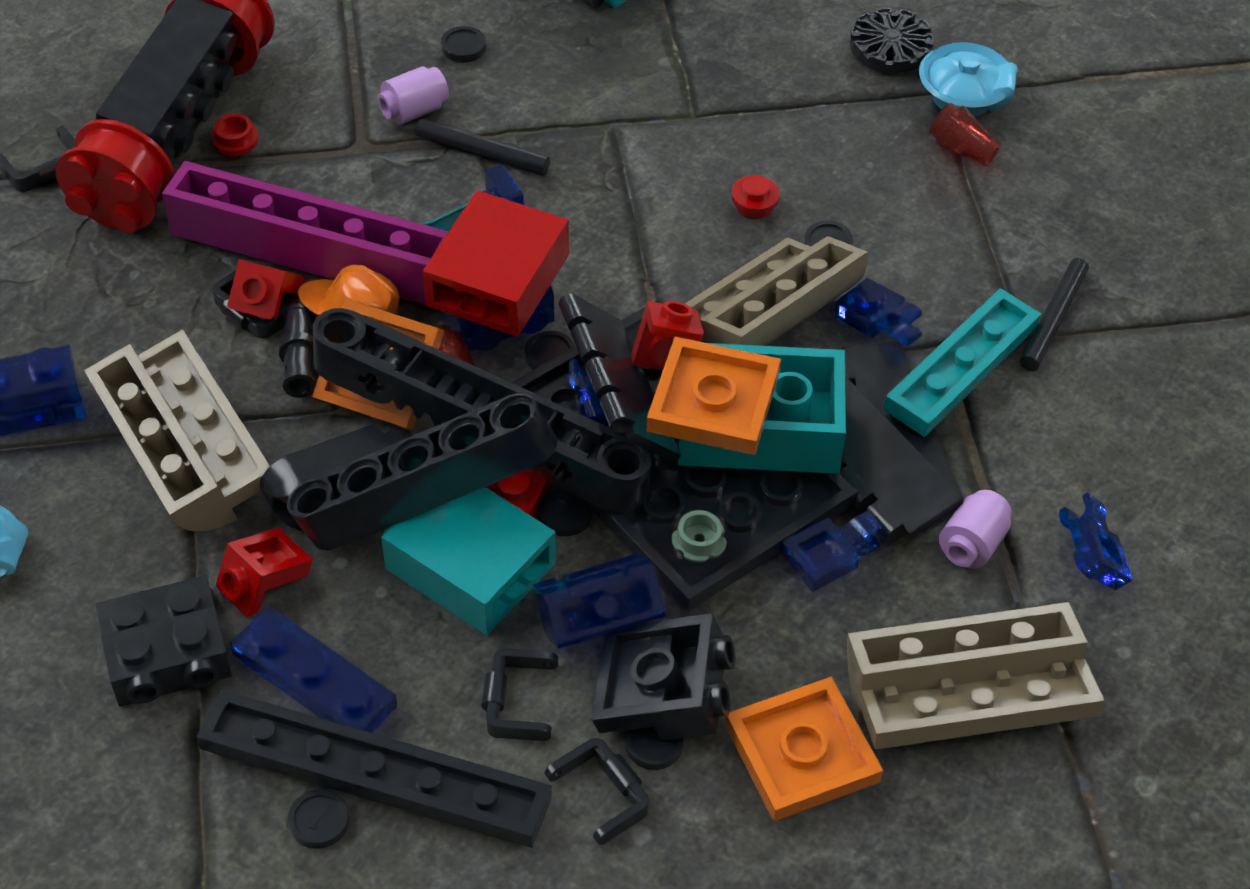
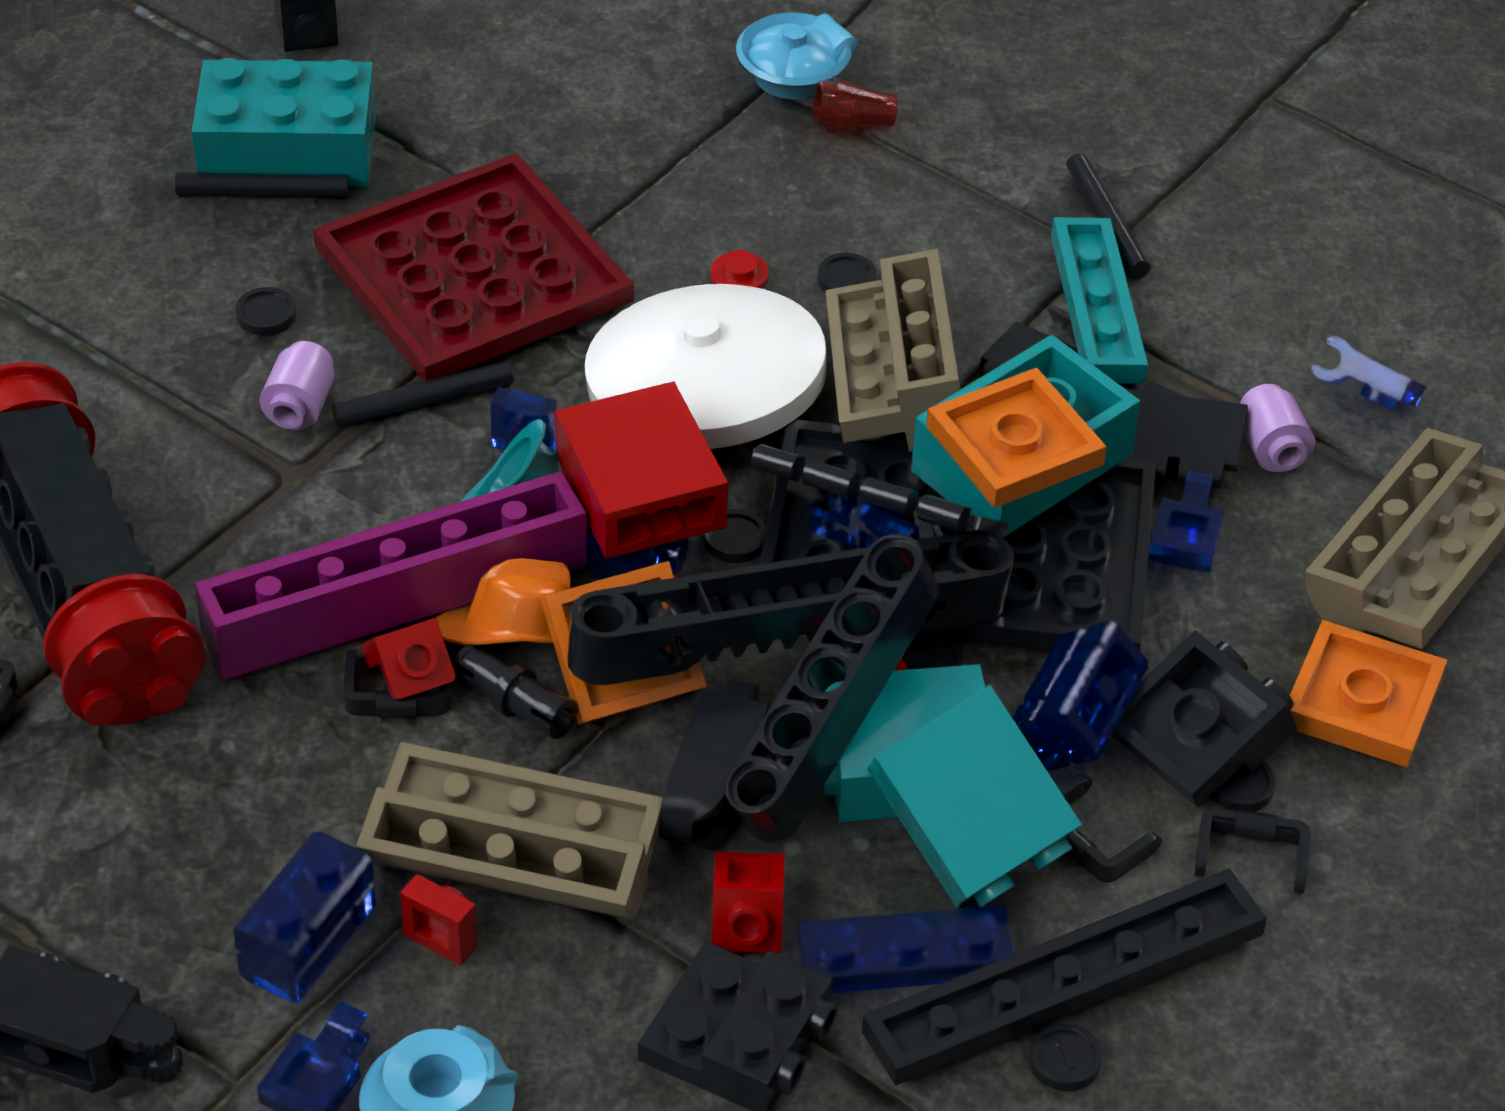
camera: 45 degrees left, 5 degrees down
(90, 447) = (439, 919): none -> red plate
(234, 135) = (163, 540): red plate -> none
(432, 609) = (975, 799): none -> teal brick
(601, 89) = (472, 267): none -> dark red plate
(656, 236) = (734, 351): none -> white dish
(658, 329) = (878, 427): red bracket -> none
(699, 525) = (1096, 582): sand green plate -> none
(876, 308) = (975, 305): clear blue plate -> none
(890, 40) = (676, 62): black wheel -> none

